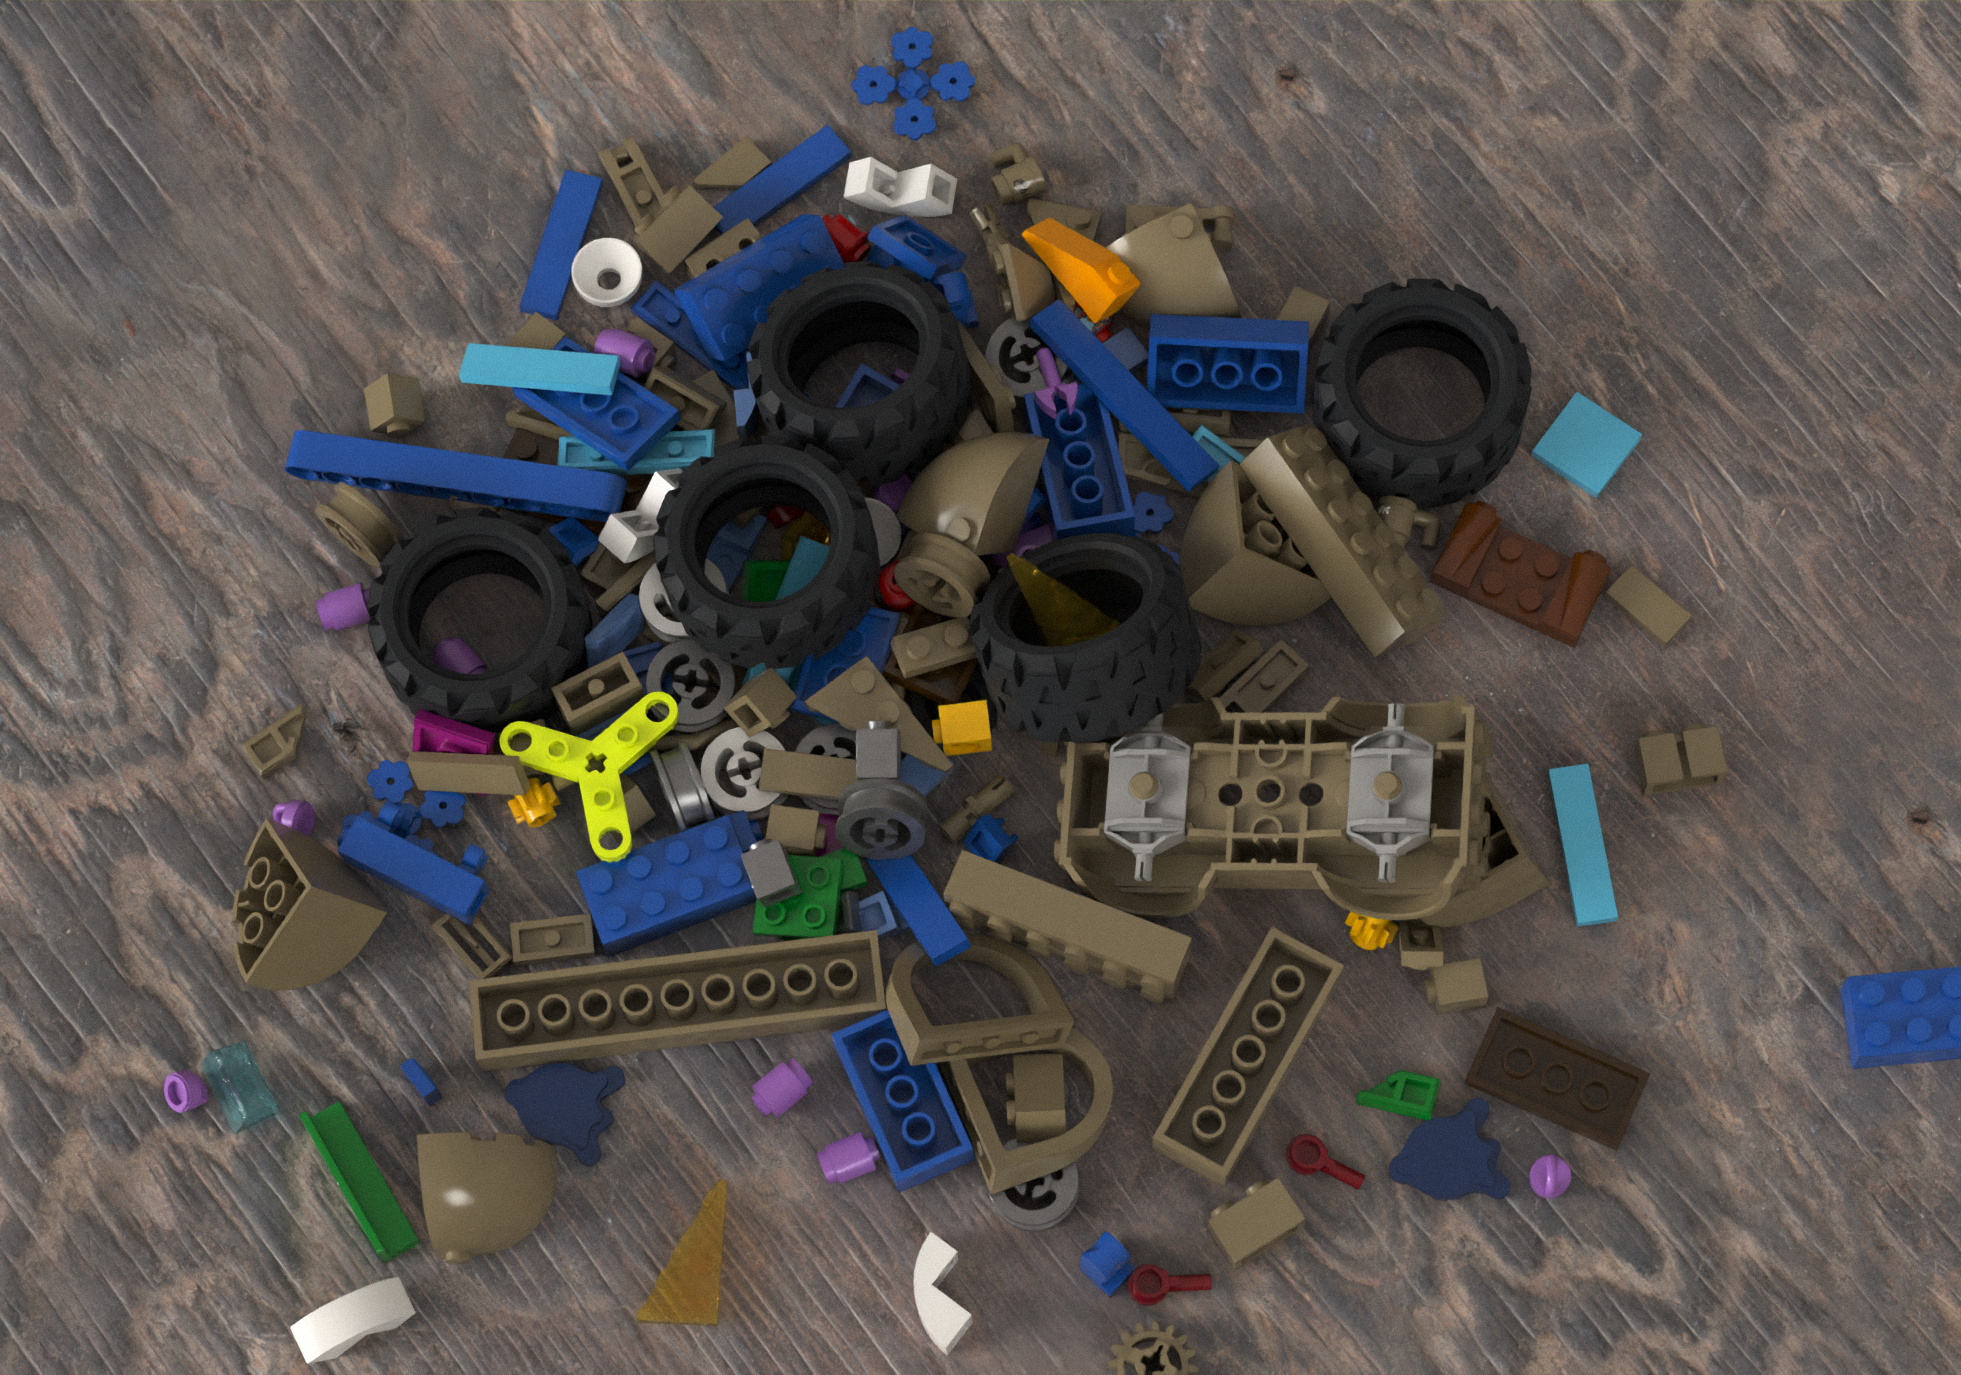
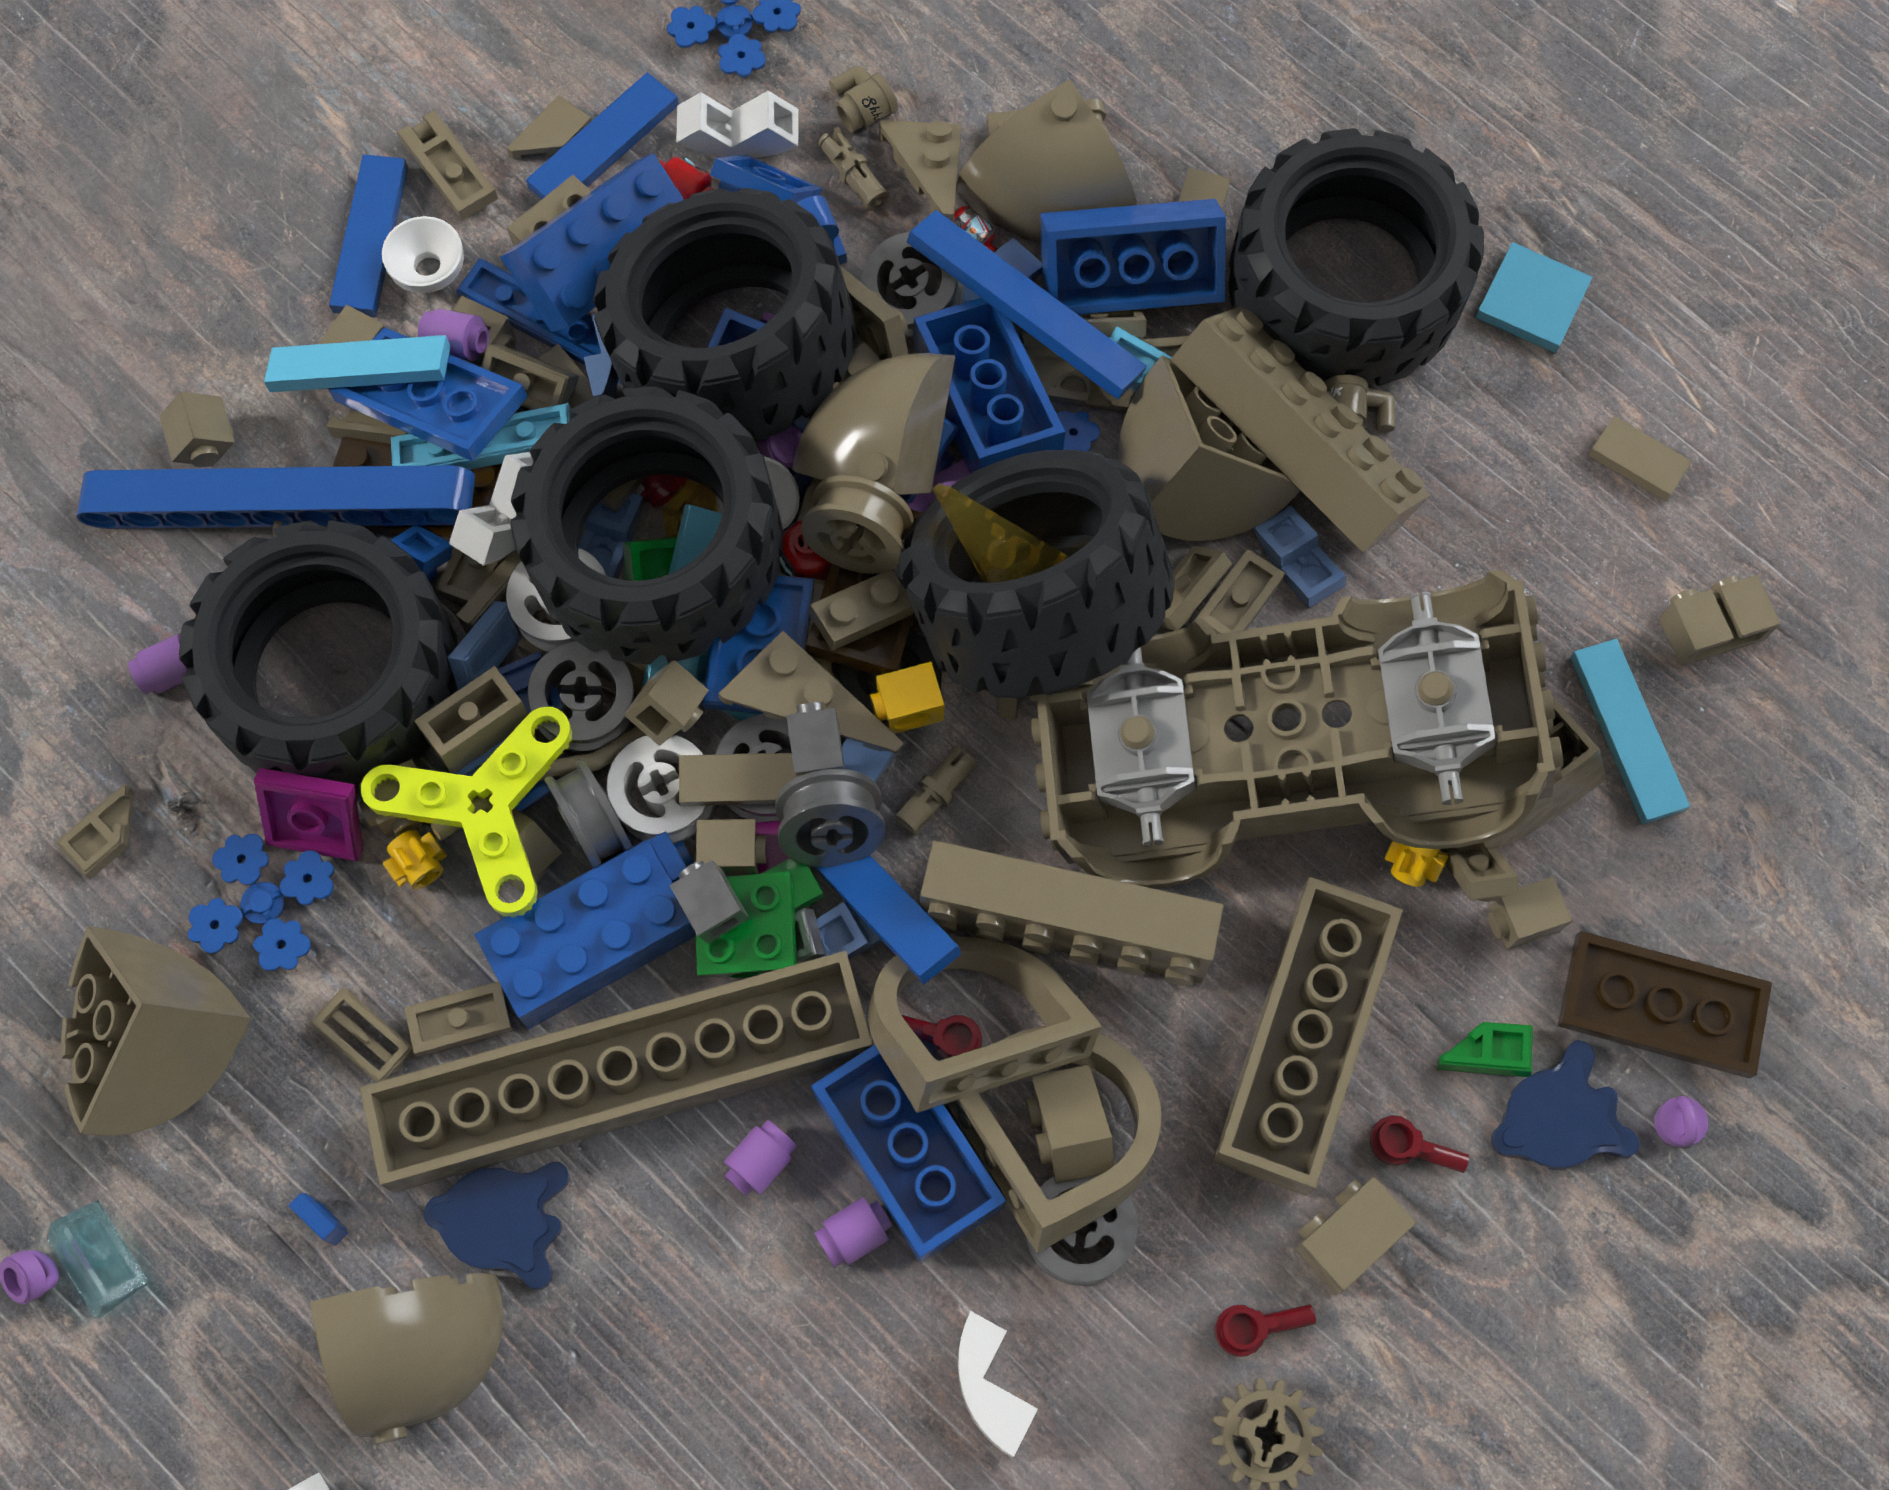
camera: 15 degrees left, 0 degrees up
(297, 815) = (131, 917): medium lavender tile -> none
(359, 524) = (163, 563): dark tan wheel -> none
(360, 1181) = (256, 1357): green panel -> none
(413, 869) = (277, 960): blue brick -> none
(458, 657) = (302, 701): medium lavender brick -> none
(468, 773) = (330, 835): dark tan tile -> none
(676, 227) = (494, 194): dark tan brick -> none
(691, 1282) = (685, 1418): clear yellow wing -> none
(949, 1011) = (950, 1035): none -> dark red plate
(989, 839) = (957, 823): blue tile -> none
(1024, 279) = (888, 193): dark tan slope -> none
(1045, 397) = (939, 317): medium lavender bar -> none
(1084, 268) = (962, 174): light orange slope -> none
(1107, 1264) = (1188, 1315): blue leg -> none
(1327, 651) = (1295, 551): none -> medium blue slope
(1520, 575) = (1495, 445): reddish brown piece -> none

